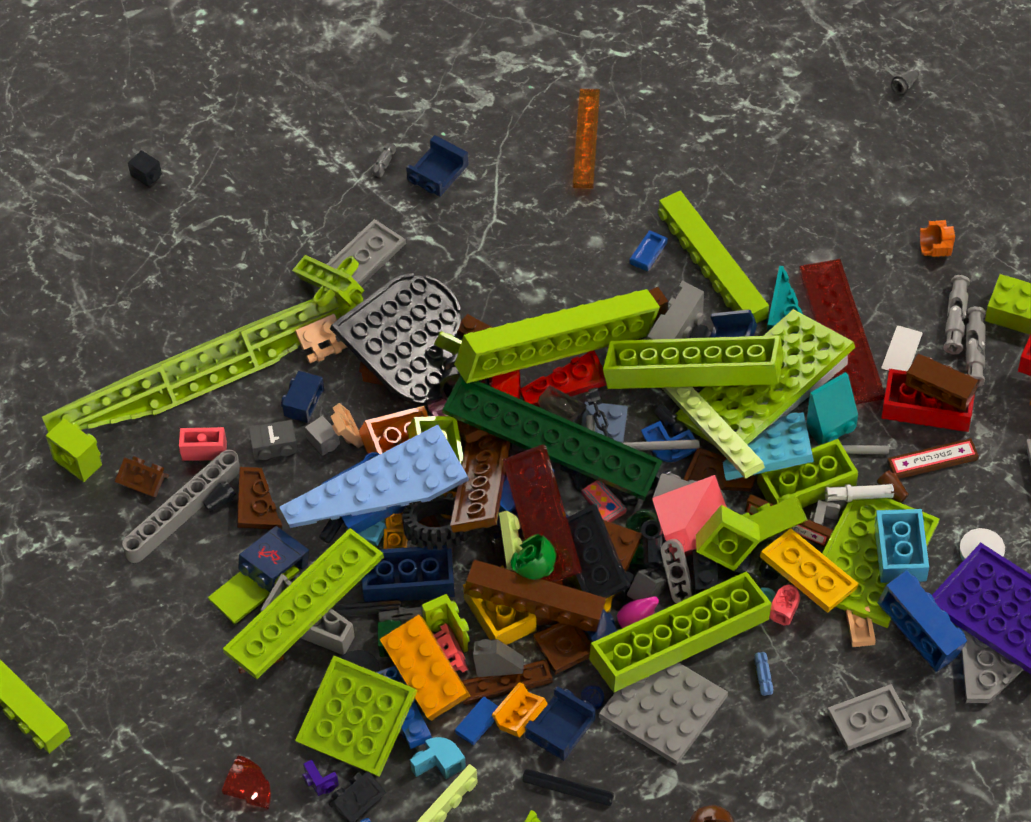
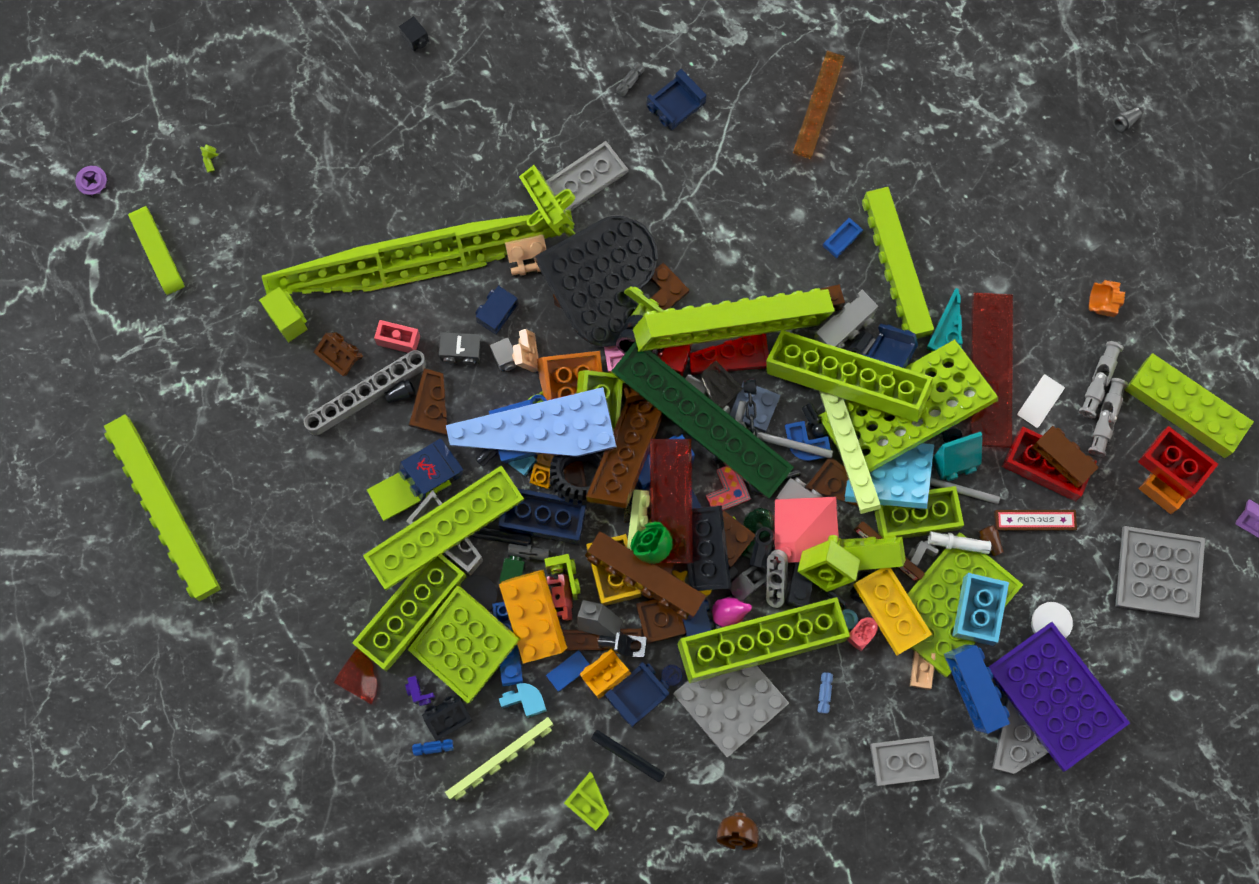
camera: 10 degrees right, 20 degrees up
(285, 701) = (408, 611): none -> lime brick
(531, 675) = (622, 644): none -> black bracket

